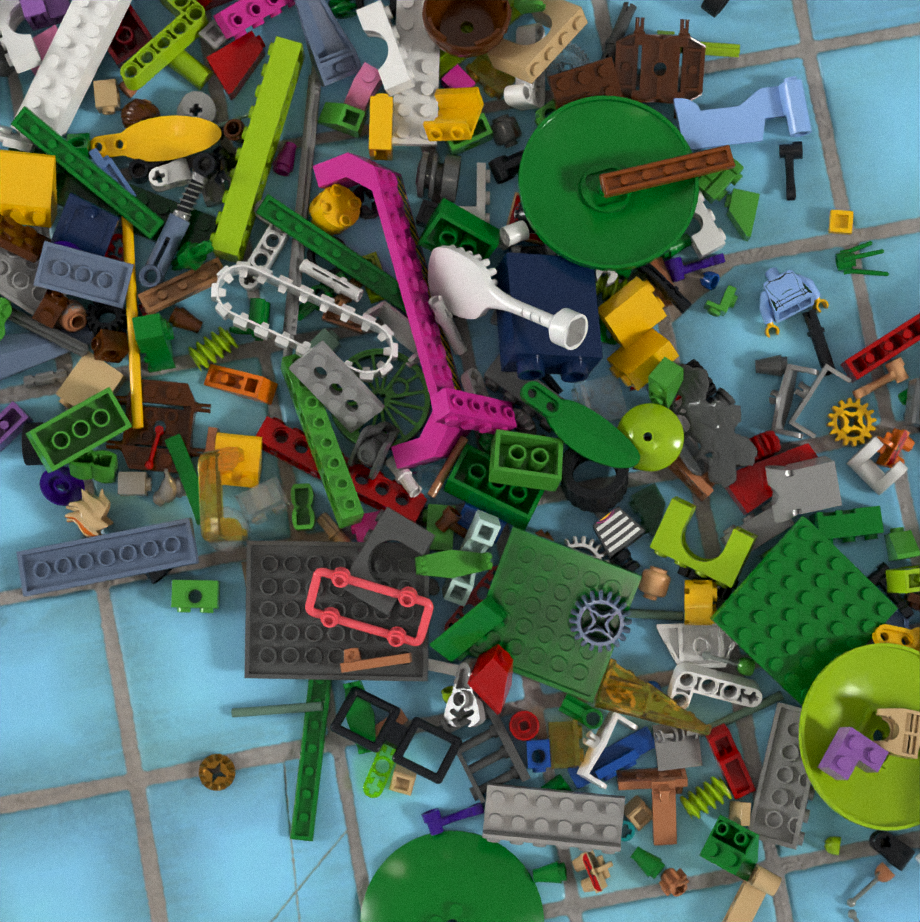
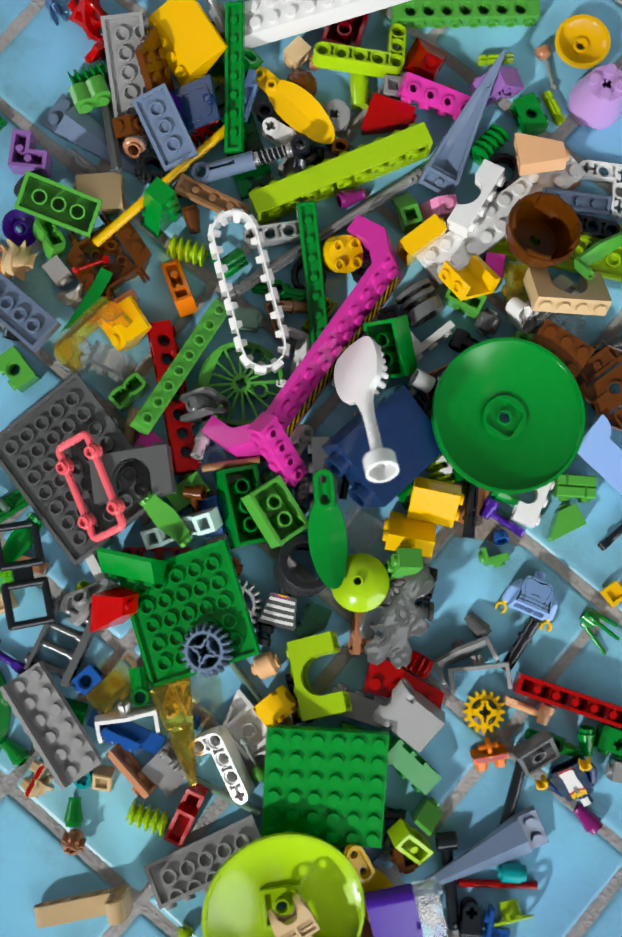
camera: 50 degrees right, 0 degrees up
(110, 346) = (133, 183): reddish brown brick -> none
(192, 255) = (235, 186): green axle -> none
(340, 285) = (294, 296): white pin -> none
(341, 374) = (230, 339): light grey plate -> none
(354, 662) = (47, 508): nougat hinge -> none
(444, 319) = (327, 381): white pin -> none
(524, 725) = (99, 654): red wheel -> none
(664, 811) = (115, 796): nougat hinge -> none
(666, 171) = (549, 448): dark orange tile -> none
(732, 848) = (124, 865): green slope -> none
(740, 812) = (155, 849): tan slope -> none
(849, 750) = (248, 898): medium lavender brick -> none
(870, 472) = (459, 753): white connector -> none

